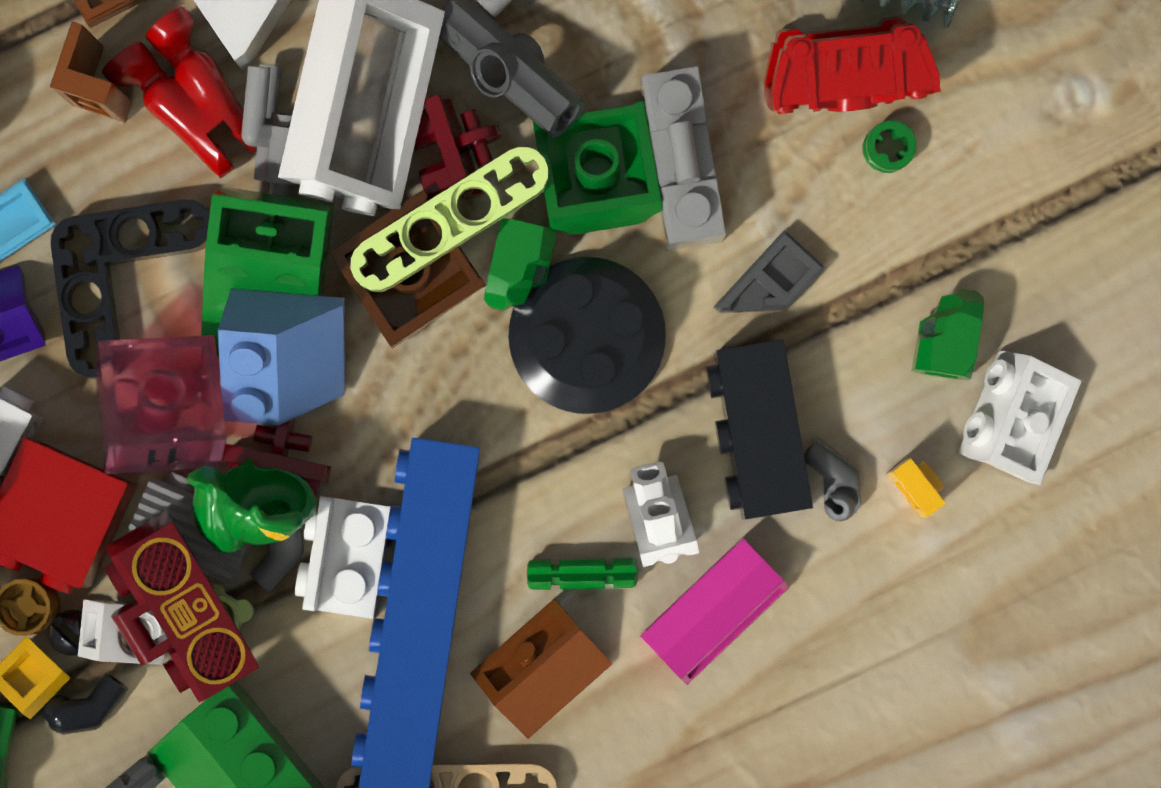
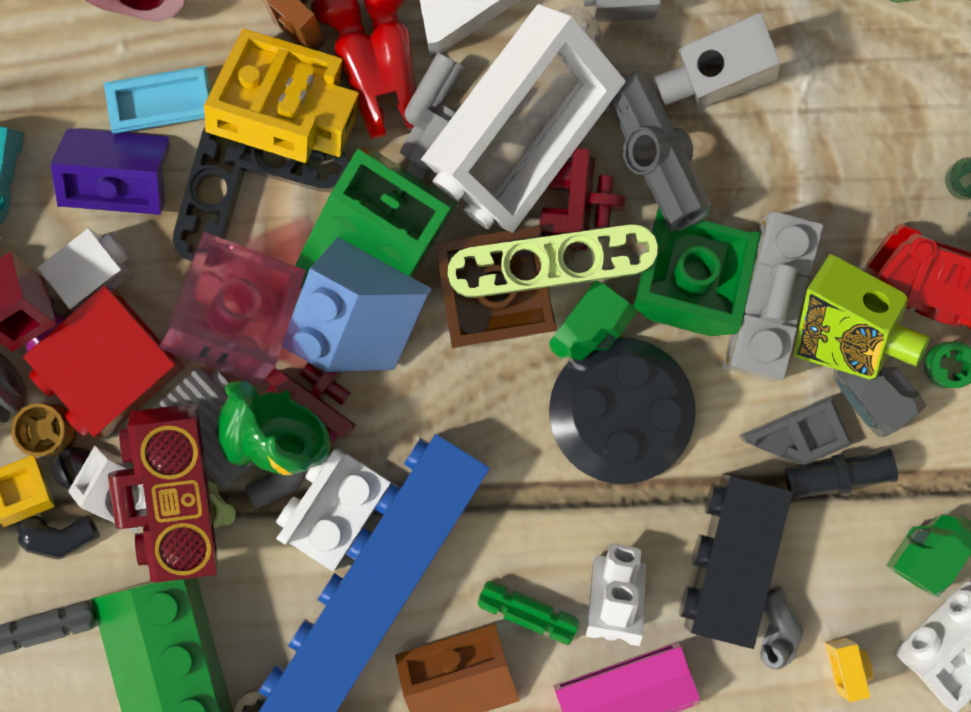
camera: 20 degrees right, 0 degrees up
(115, 178) = (281, 98): none -> yellow piece
(768, 148) = (855, 322): none -> lime torso
(827, 206) = (881, 402): none -> dark grey rock
(827, 302) = (841, 474): none -> black pin

